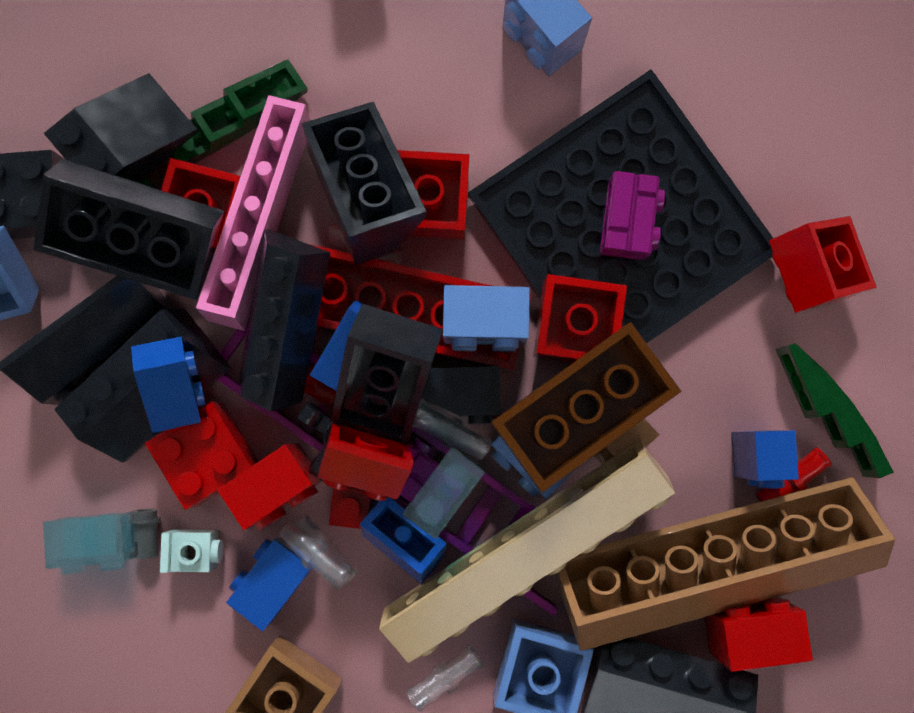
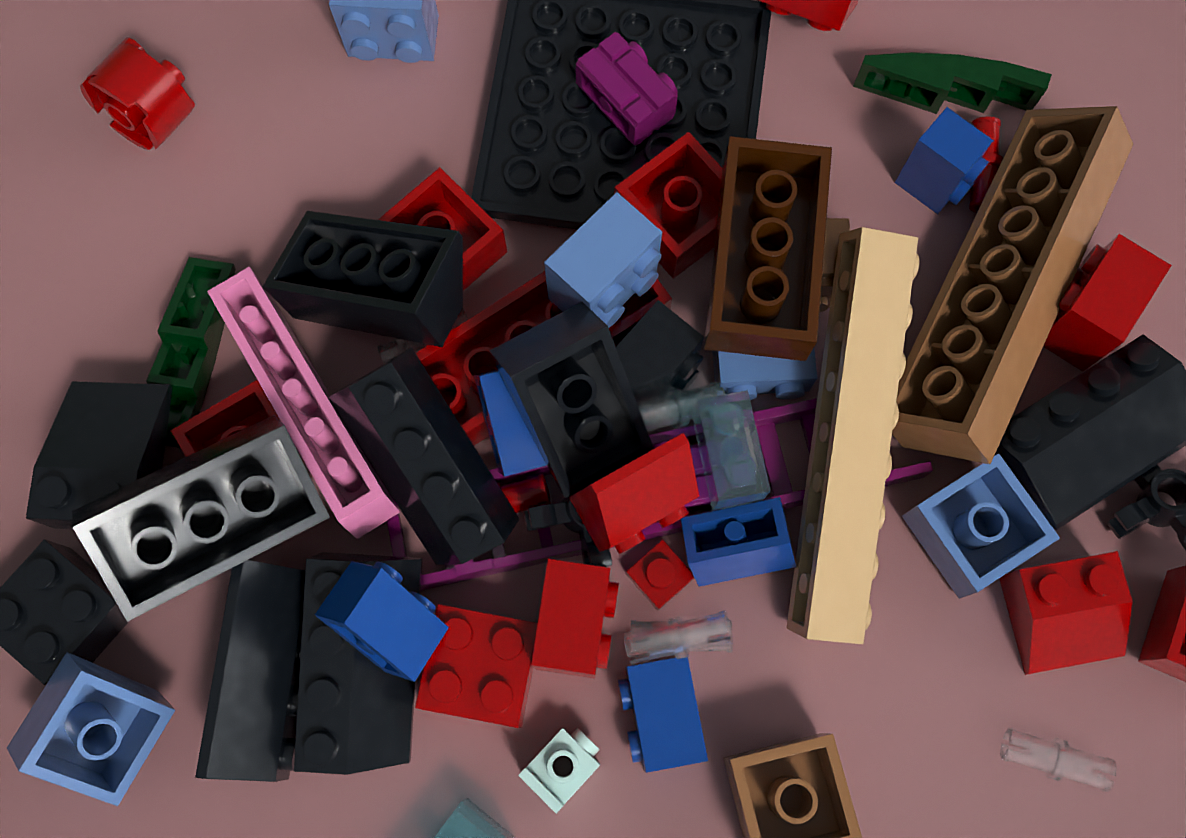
camera: 50 degrees left, 10 degrees down
(145, 533) = (500, 801): dark grey pin -> none
(444, 678) = (906, 629): clear pin -> none

